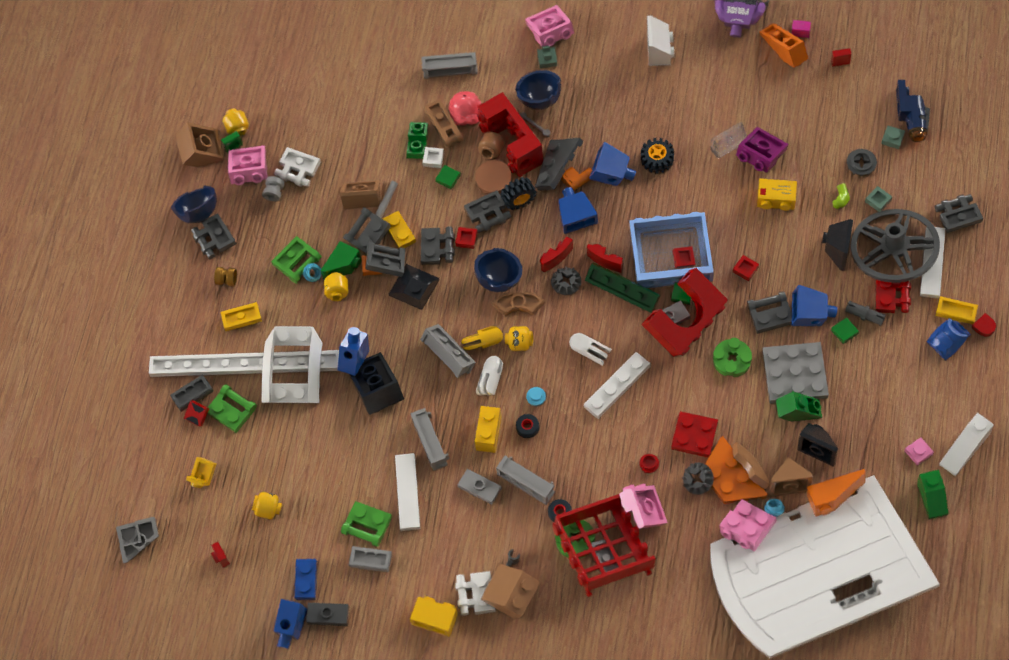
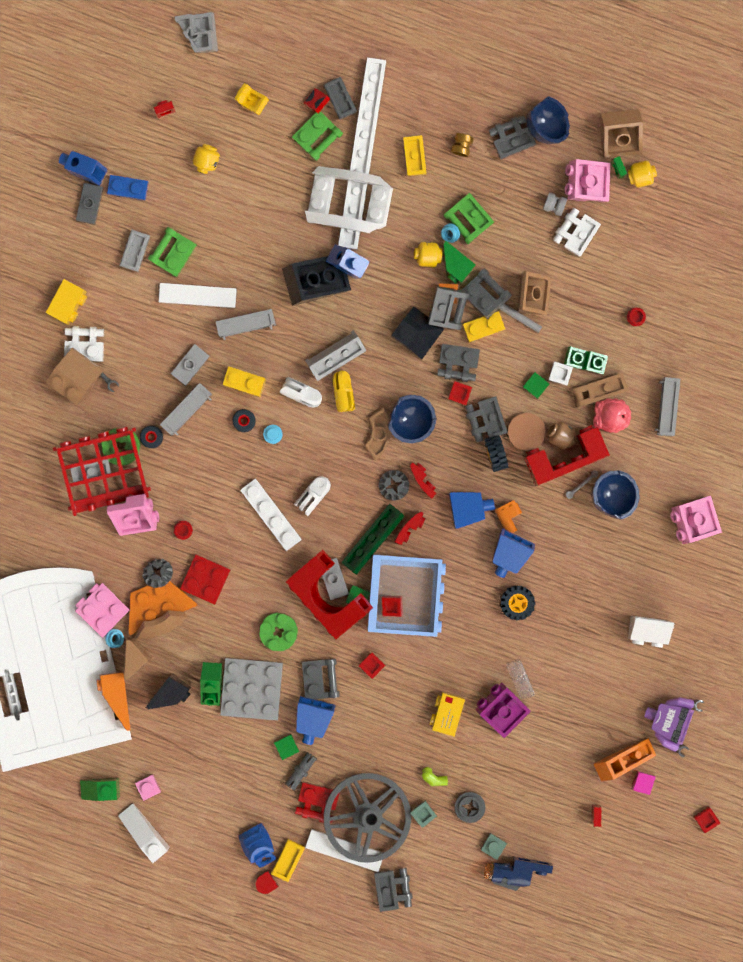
camera: 95 degrees right, 25 degrees up
(370, 106) = (636, 316): none -> red plate
(519, 338) = (335, 427): yellow head -> none
(547, 57) = (660, 511): sand green tile -> none
(555, 160) = (532, 499): dark grey wing -> none
(837, 242) = (378, 762): black slope -> none

